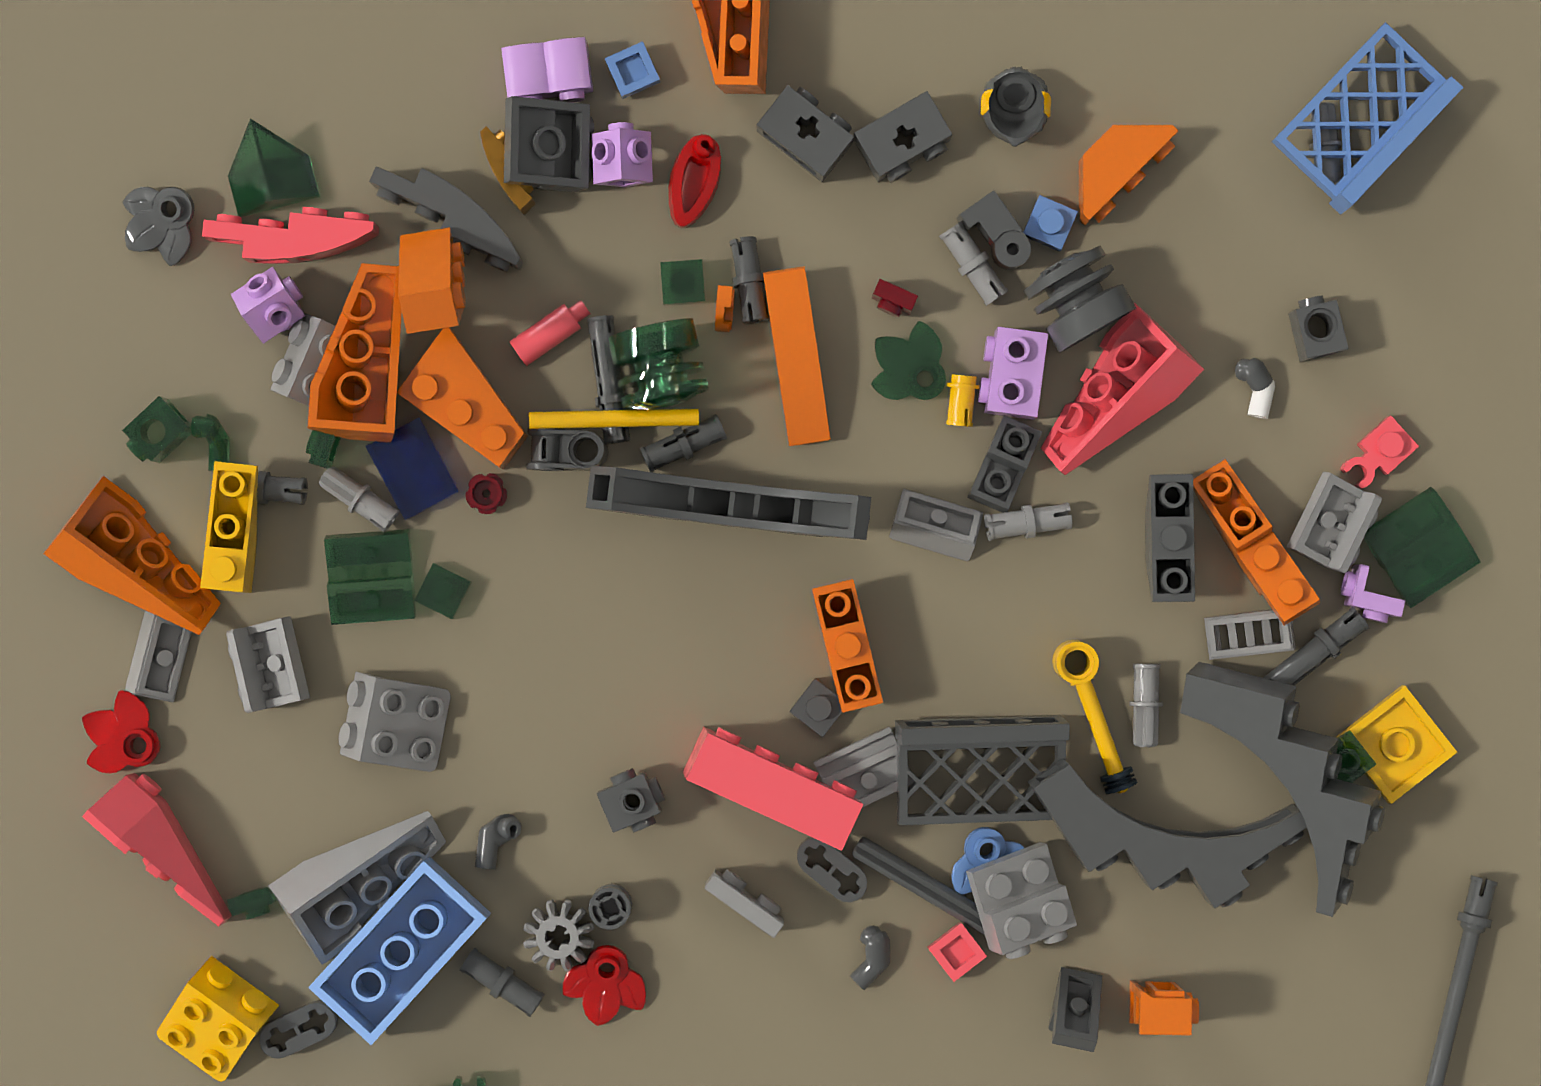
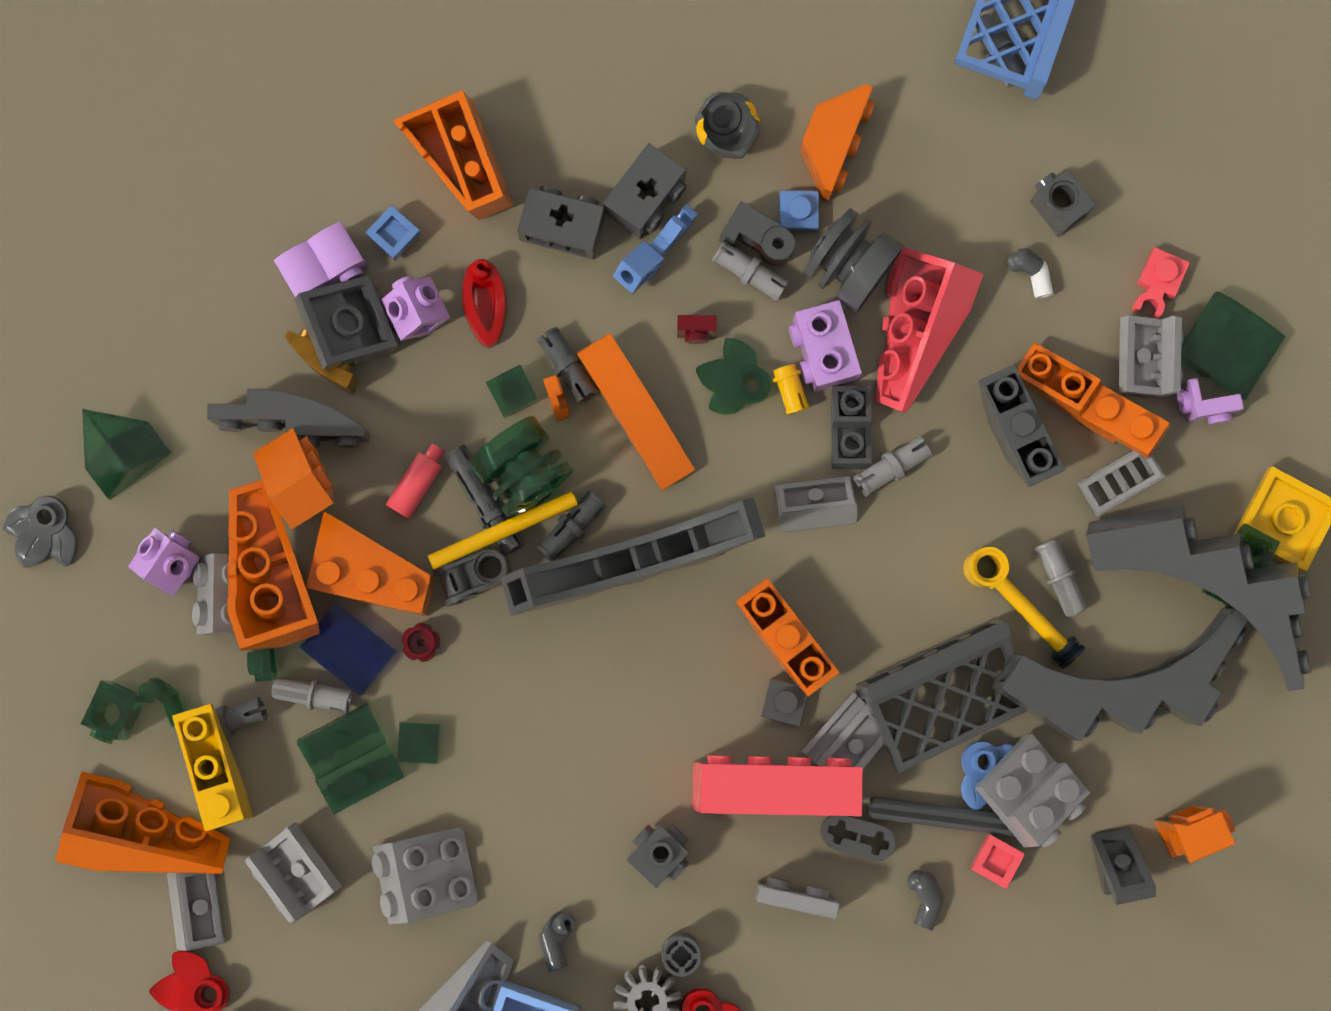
camera: 25 degrees left, 5 degrees down
(308, 235) = (175, 491): coral slope -> none
(875, 206) = (646, 259): none -> medium blue piece
(1324, 645) = (1188, 462): dark grey pin -> none

